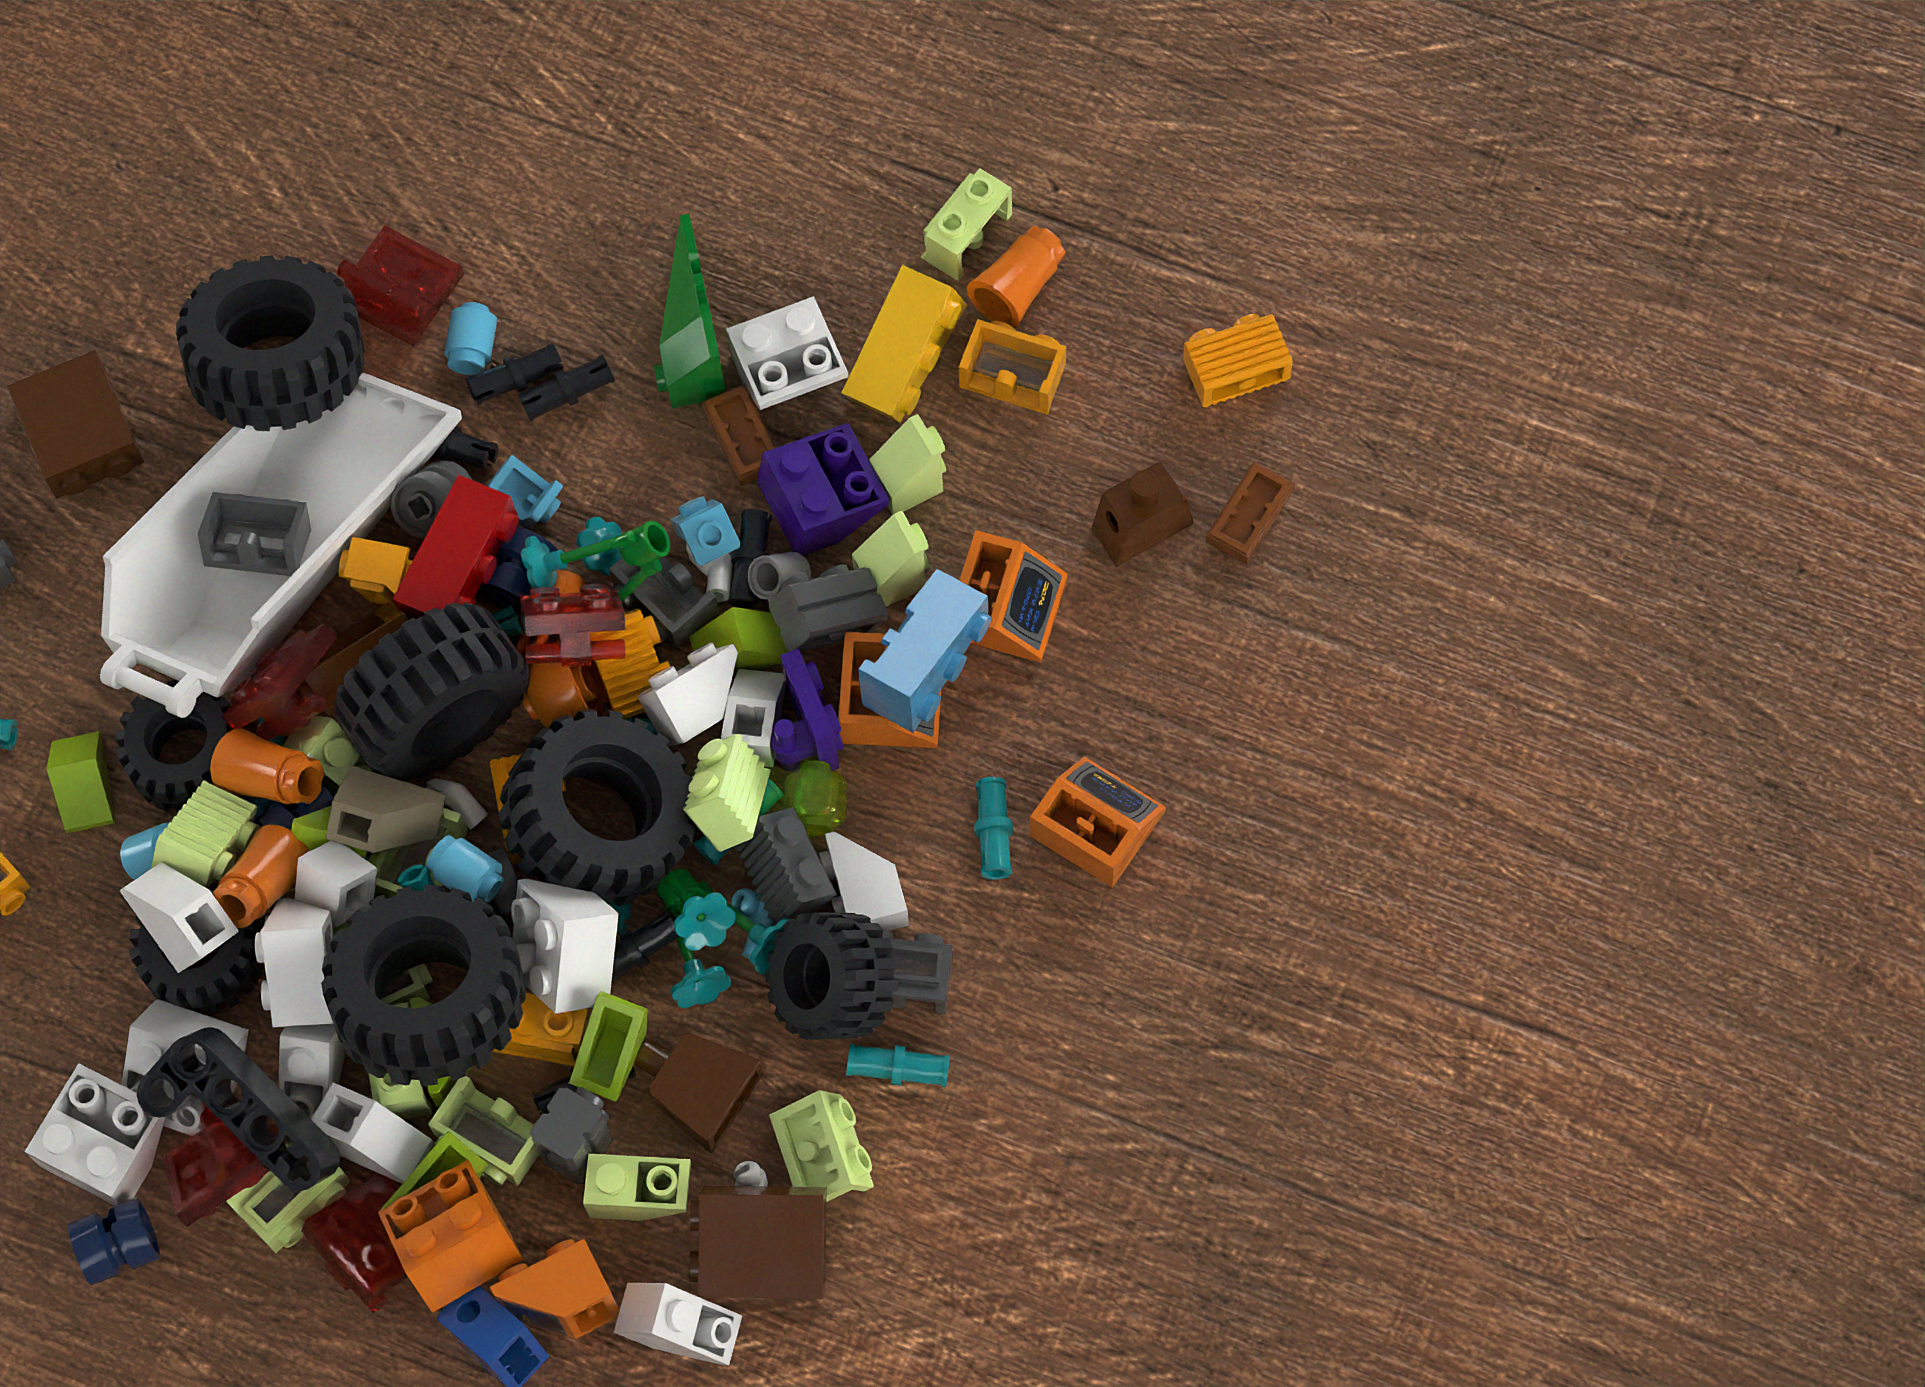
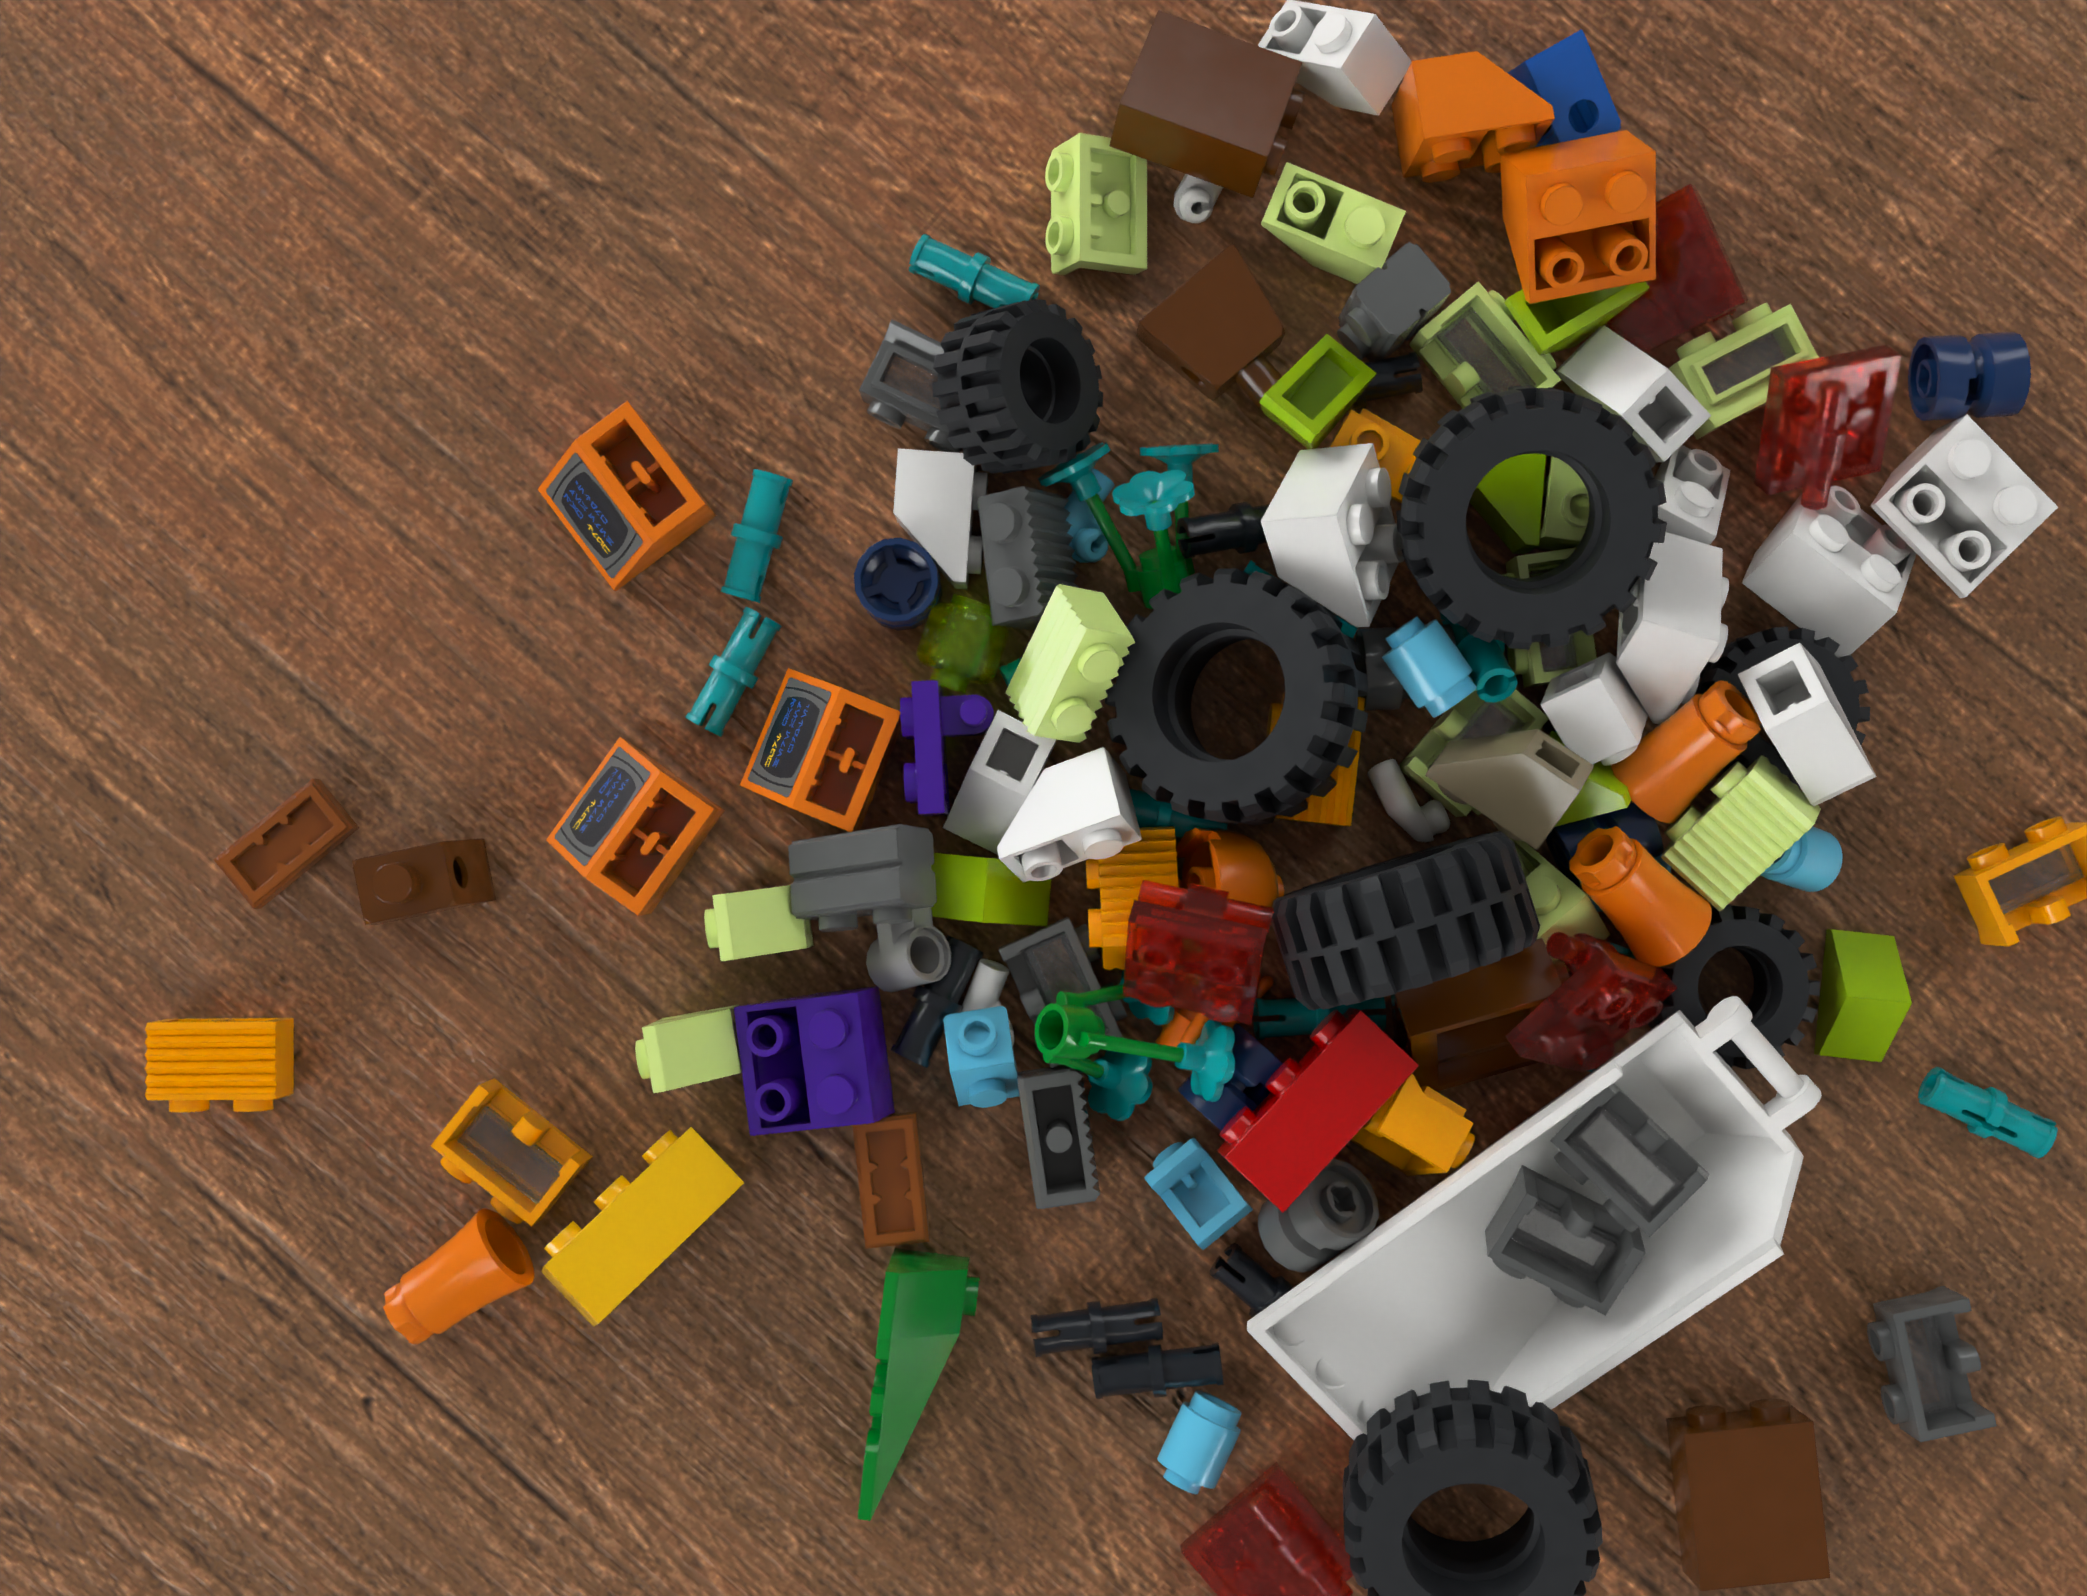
camera: 165 degrees left, 20 degrees up
(219, 592) = (1628, 1161): none -> dark grey window
(243, 1118) = (1786, 451): black beam -> none
(630, 486) = (1058, 1136): none -> dark grey brick
(785, 353) = (797, 1262): white slope -> none
(875, 810) = (897, 583): none -> dark blue wheel
(924, 651) = (754, 753): wedge -> none
(961, 221) = (498, 1382): yellowish green window -> none
(976, 730) = (733, 671): none -> teal pin

